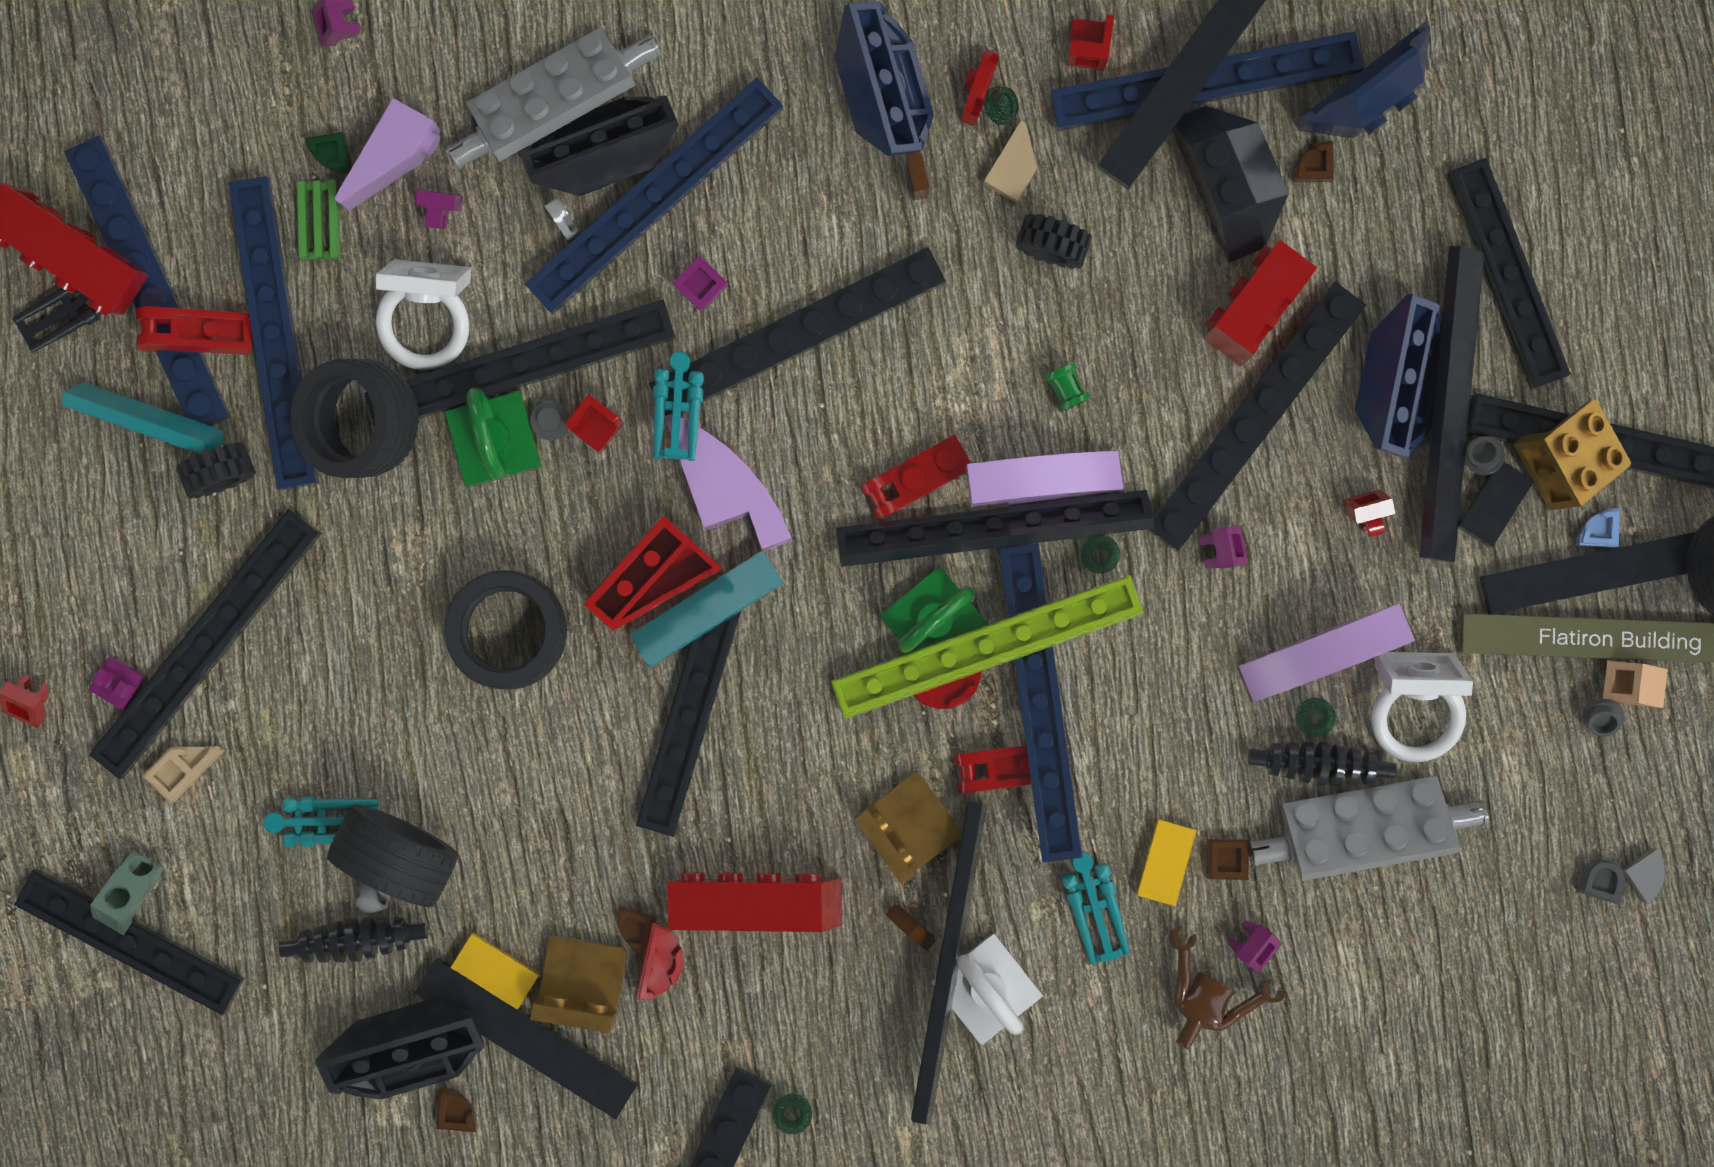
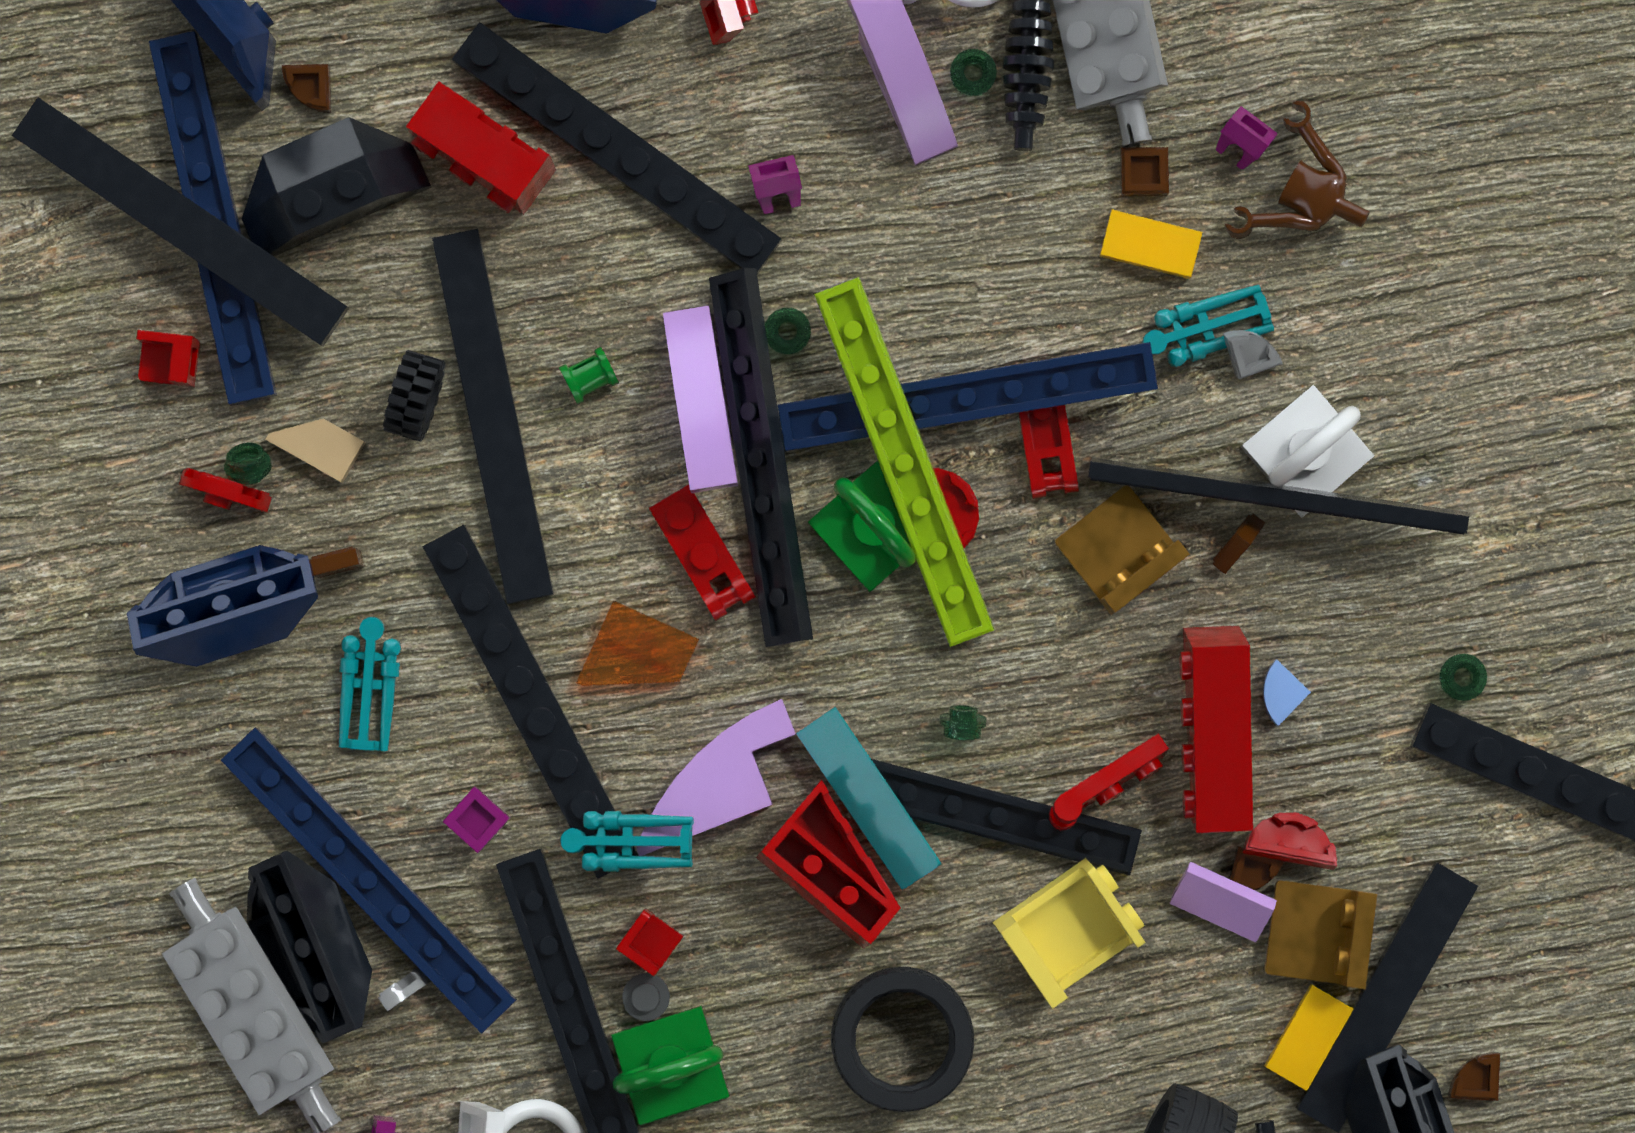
camera: 90 degrees left, 0 degrees up
(591, 772) = (1069, 929): none -> light yellow panel
(610, 903) = (1223, 902): none -> lavender tile
(712, 808) = (1107, 782): none -> red plate
(767, 689) = (962, 722): none -> clear green plate
(784, 959) = (1281, 692): none -> light blue tile
(836, 421) = (636, 651): none -> clear orange wing
(860, 202) = (371, 630): none -> teal piece
(1035, 308) = (493, 416): none -> black tile
(1071, 943) = (1250, 353): none -> light grey tile

